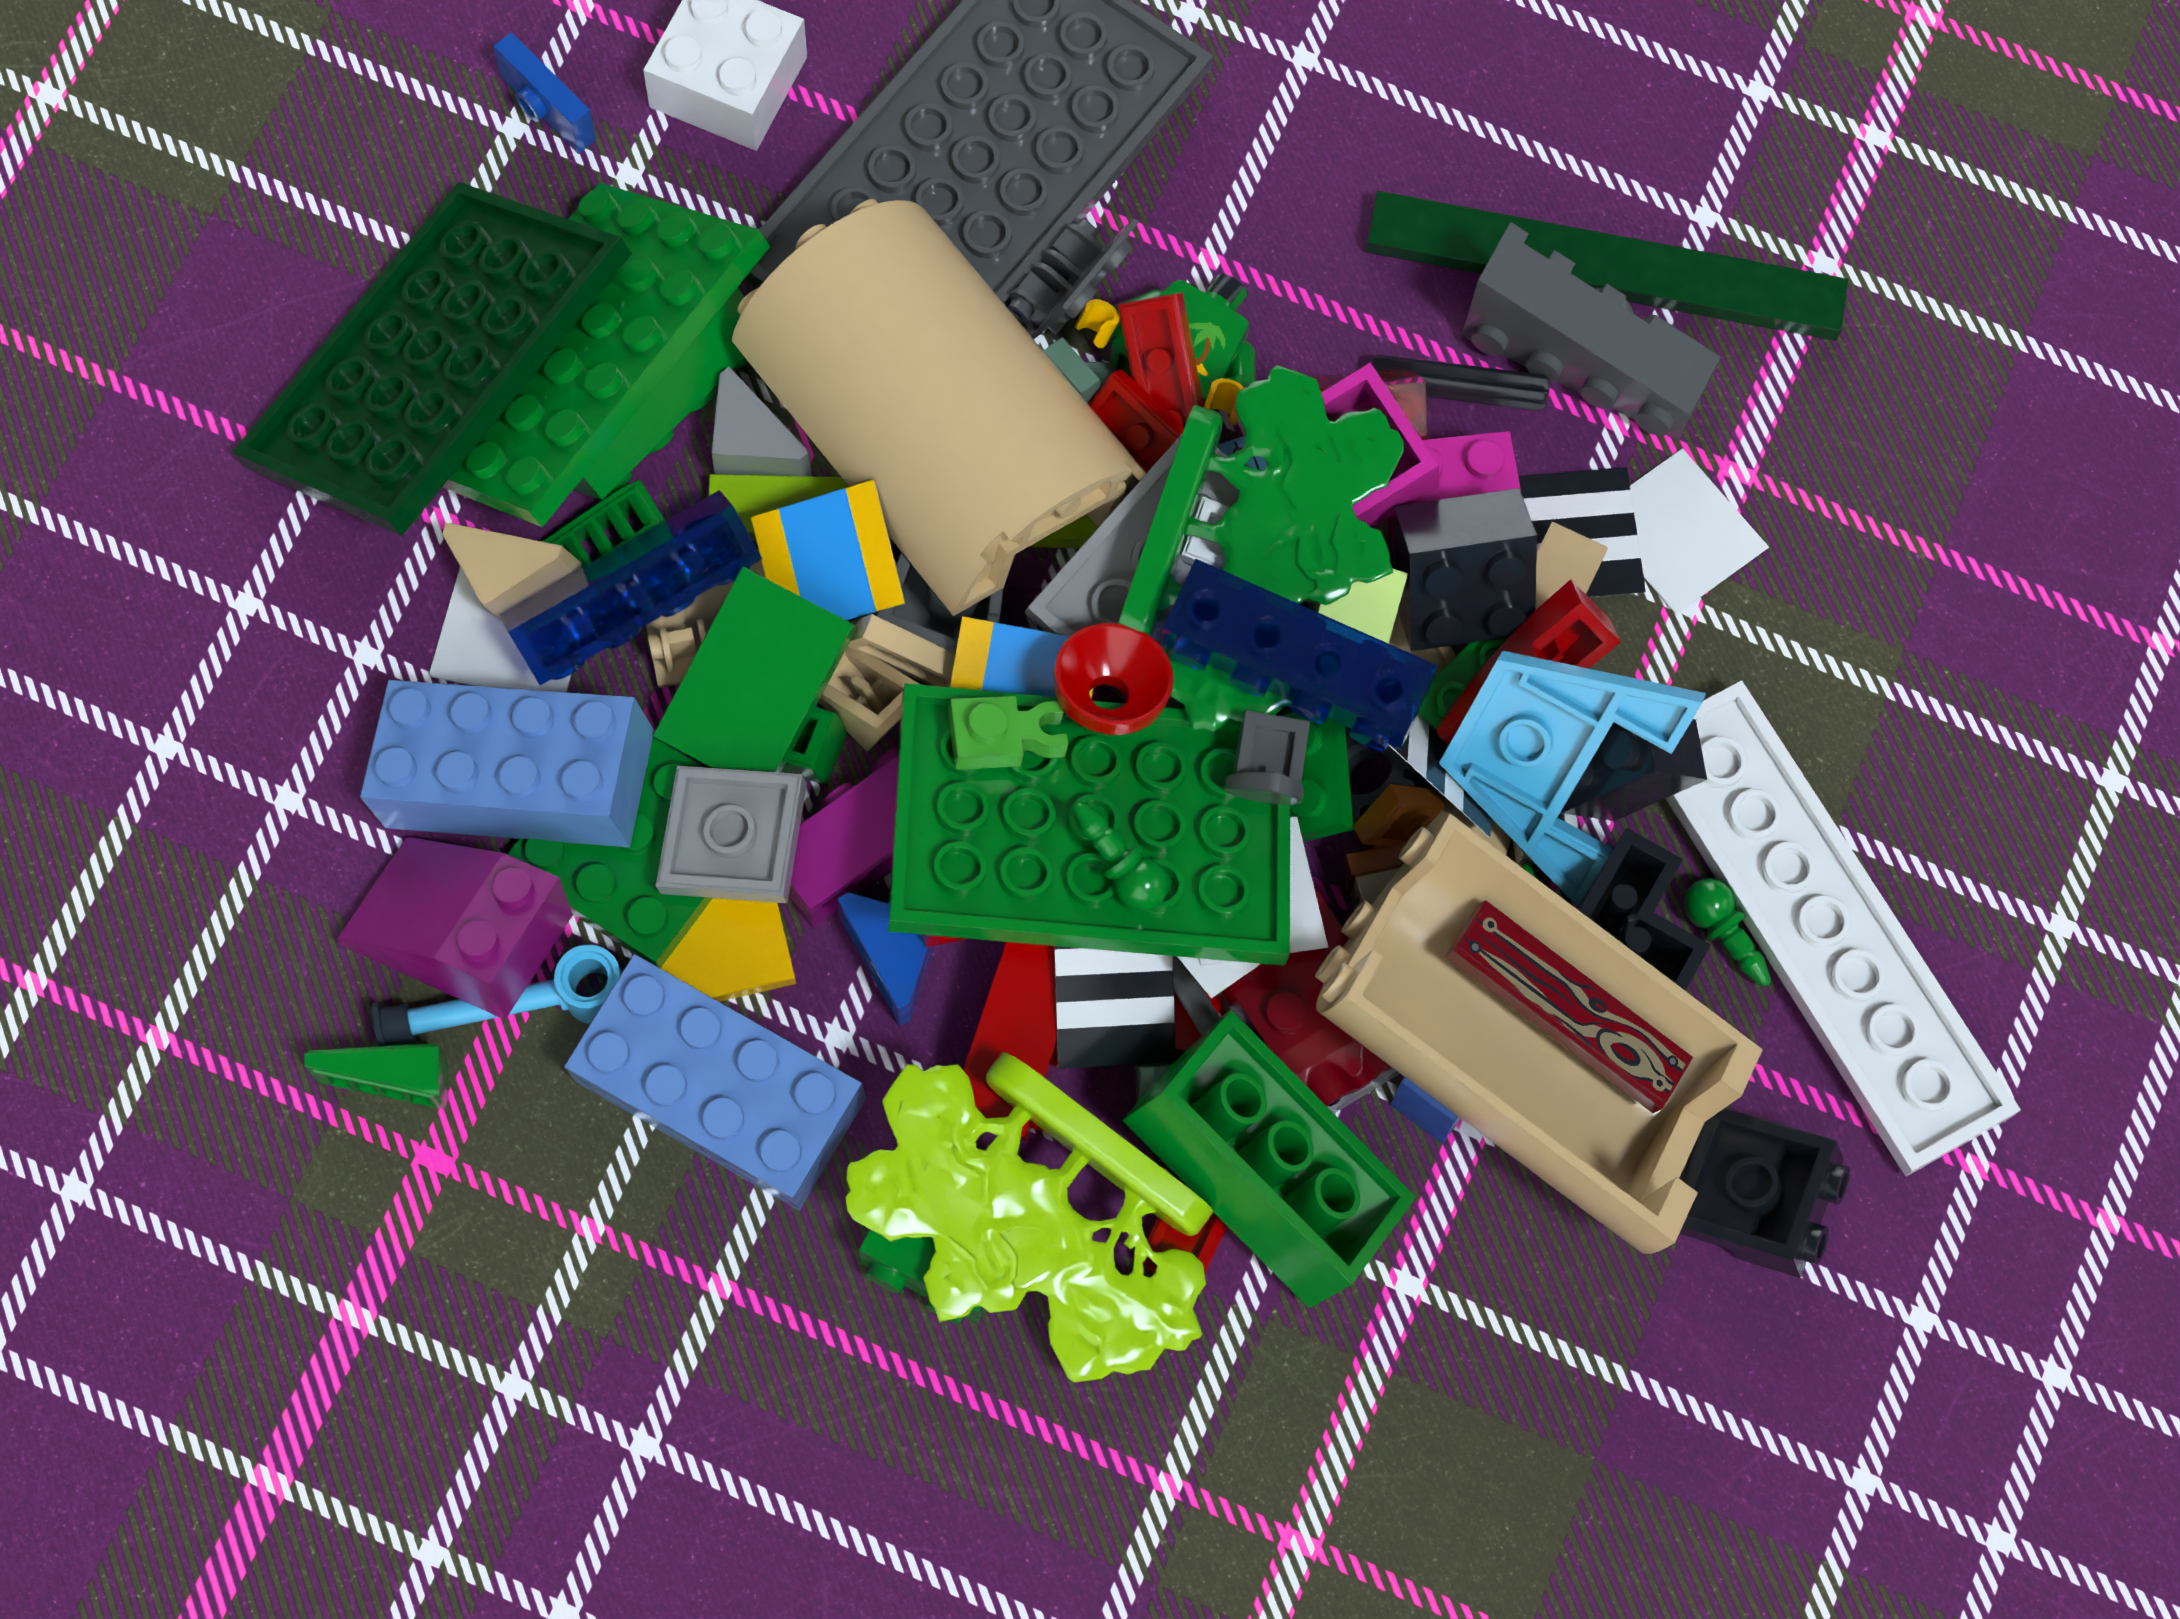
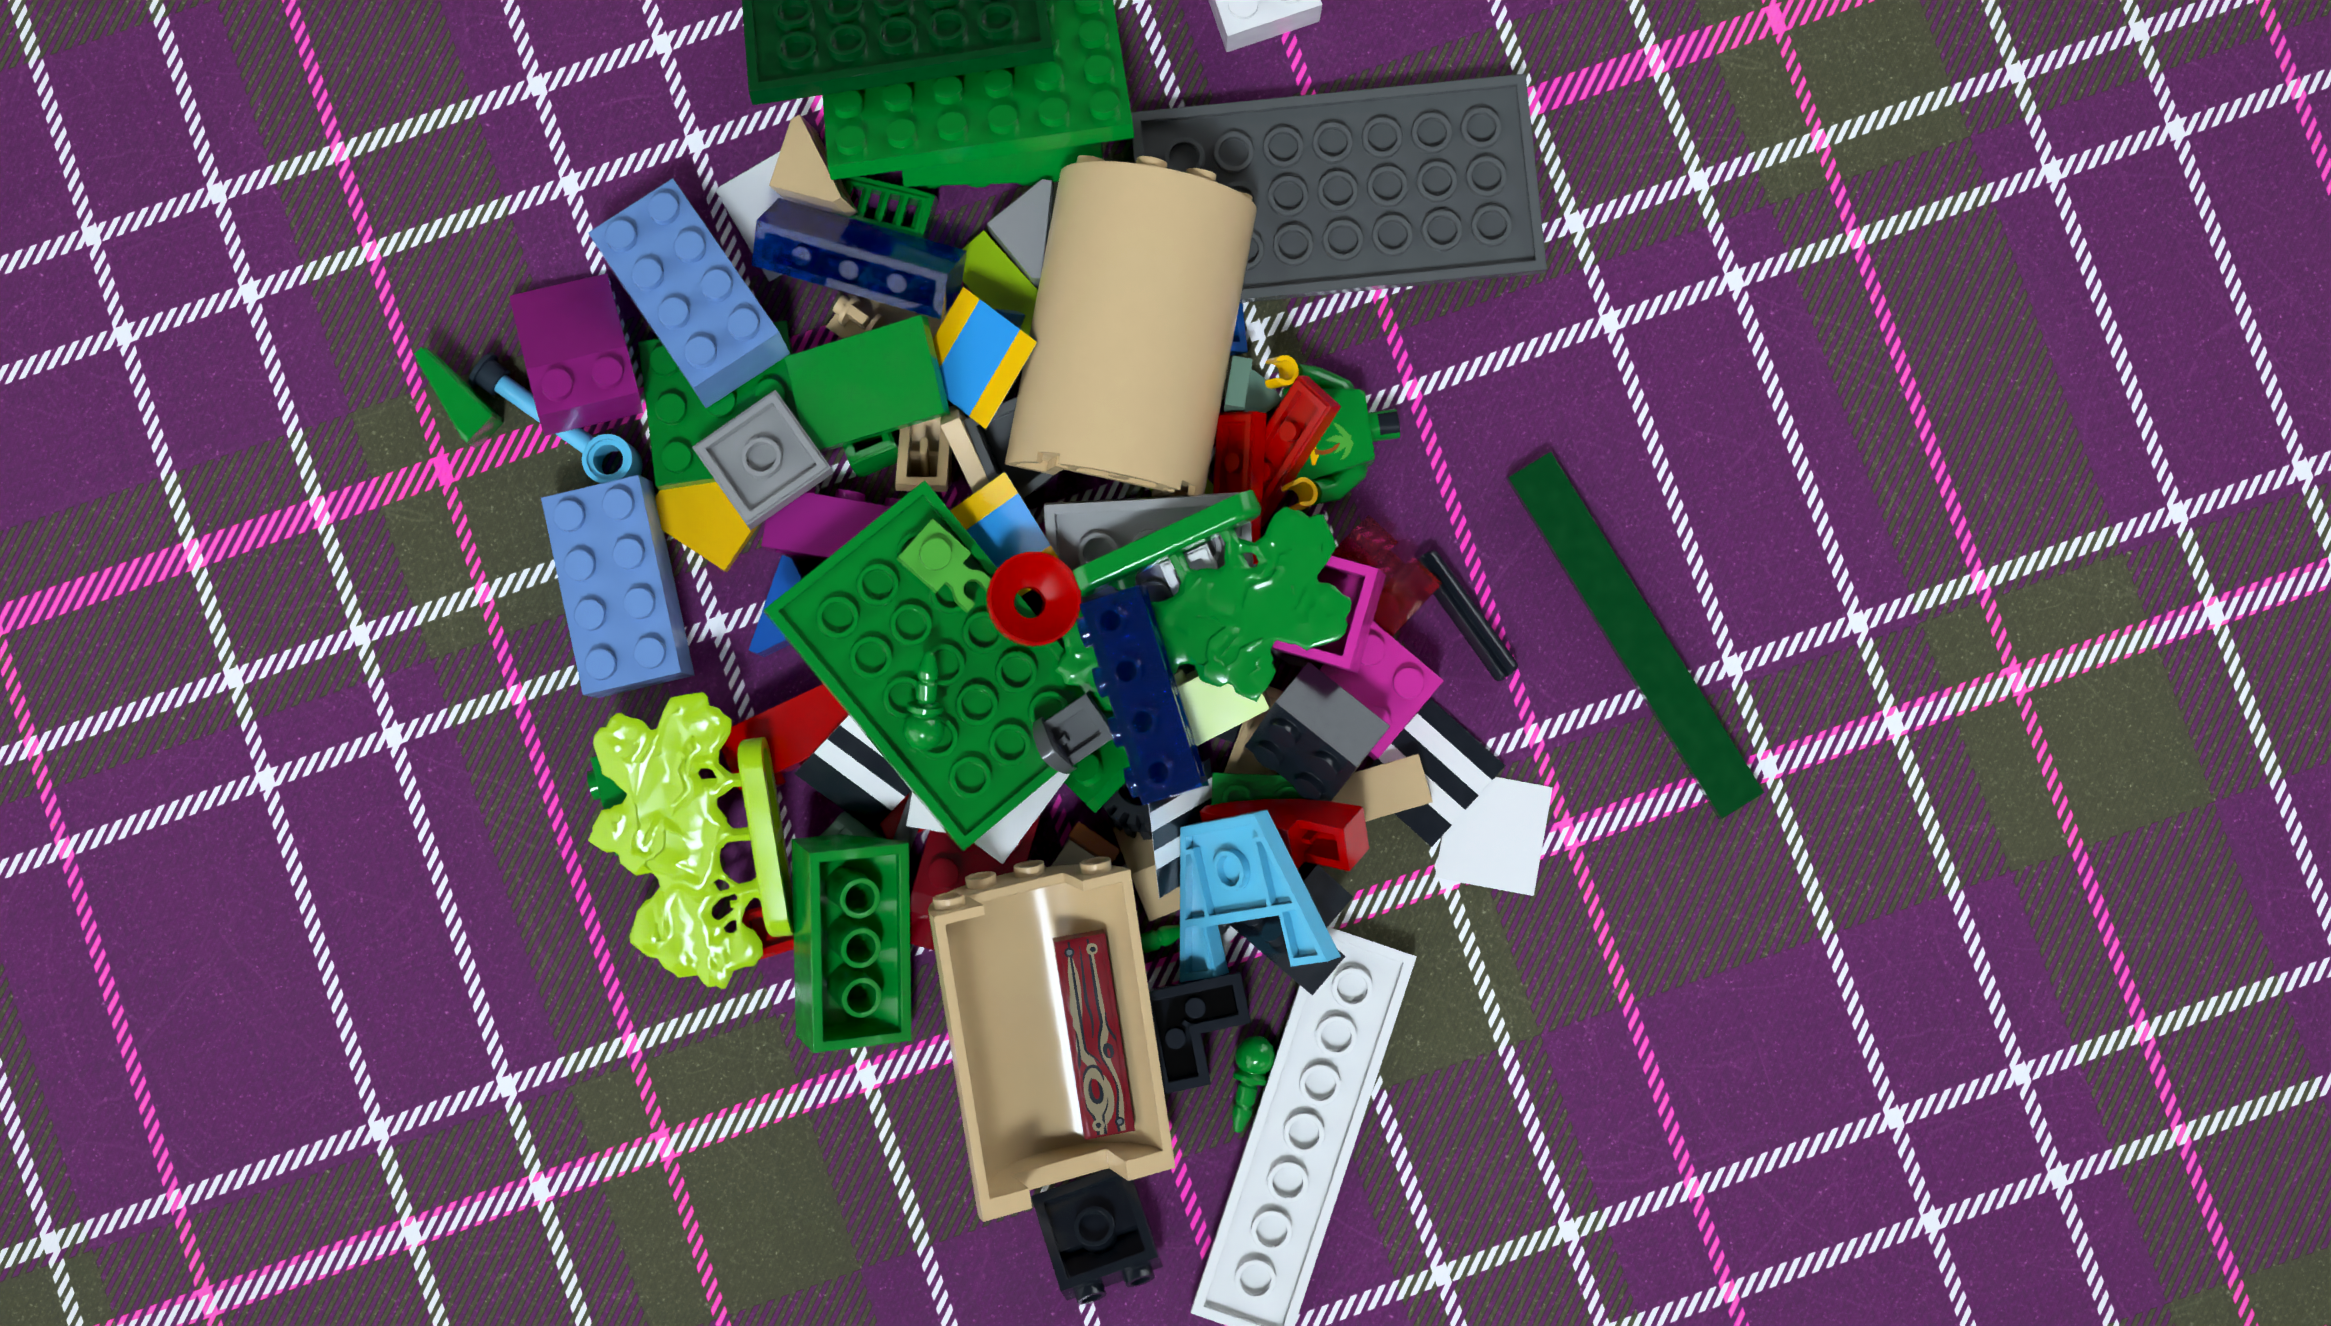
camera: 55 degrees right, 15 degrees up
(1068, 276) = (1331, 329): dark grey hinge -> none
(1398, 815) = (1123, 832): reddish brown tile -> none
(1586, 338) = (1560, 672): dark grey wedge -> none

